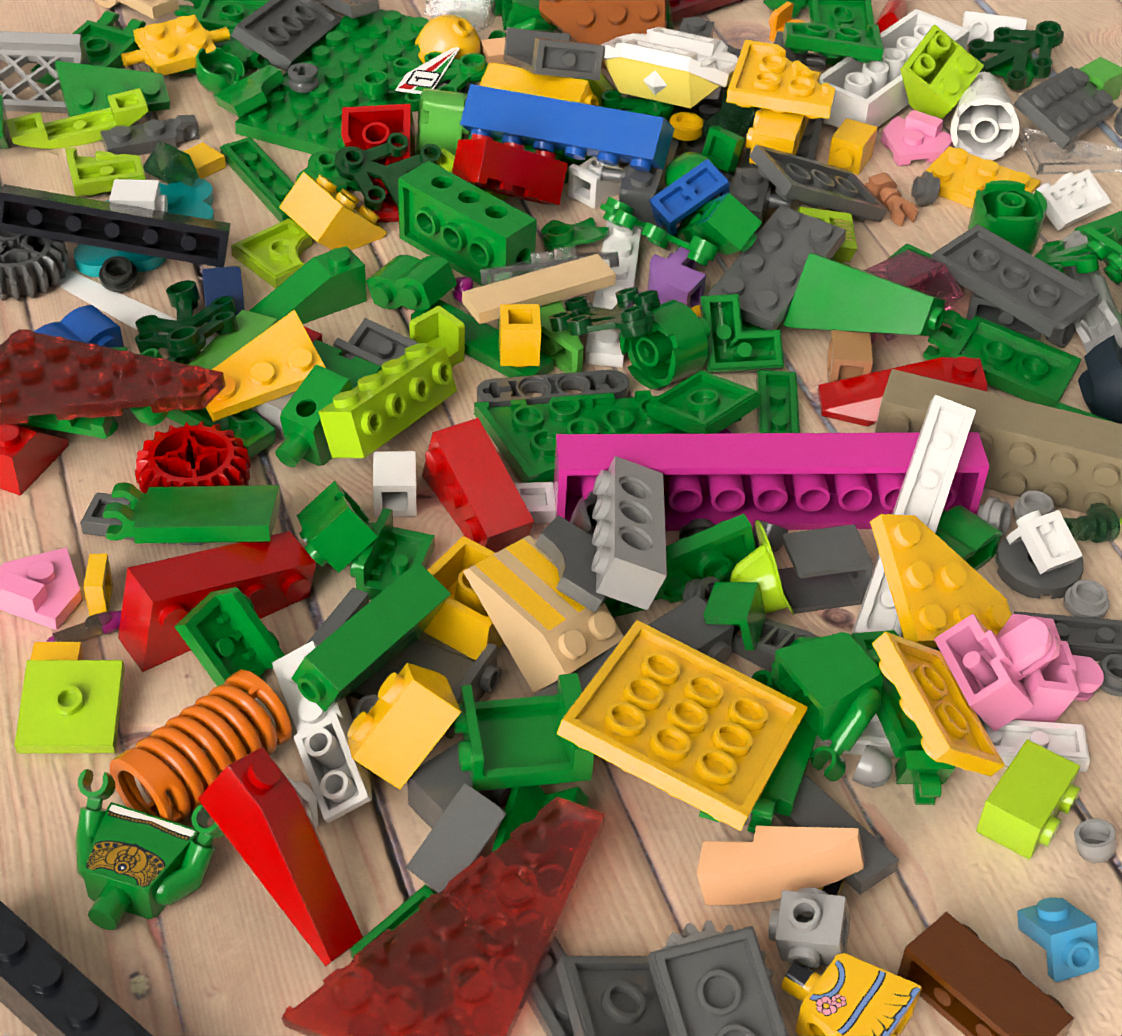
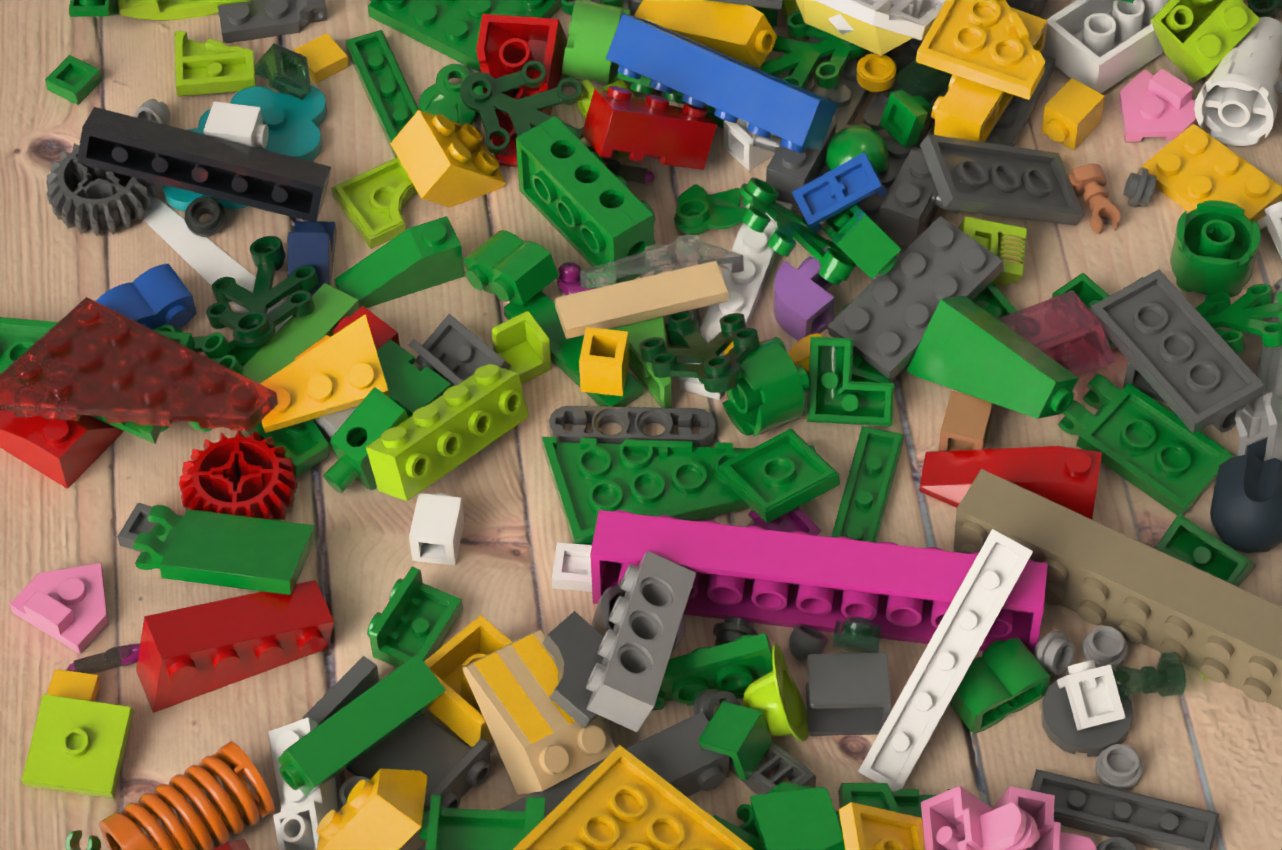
camera: 15 degrees right, 10 degrees up
(98, 583) = (123, 613): yellow tile -> none
(229, 636) = (233, 700): green bracket -> none
(335, 528) = (360, 583): green brick -> none
(476, 486) = (514, 551): red wedge -> none
(822, 513) = (857, 635): none -> clear green slope
(932, 582) = (945, 739): yellow plate -> none

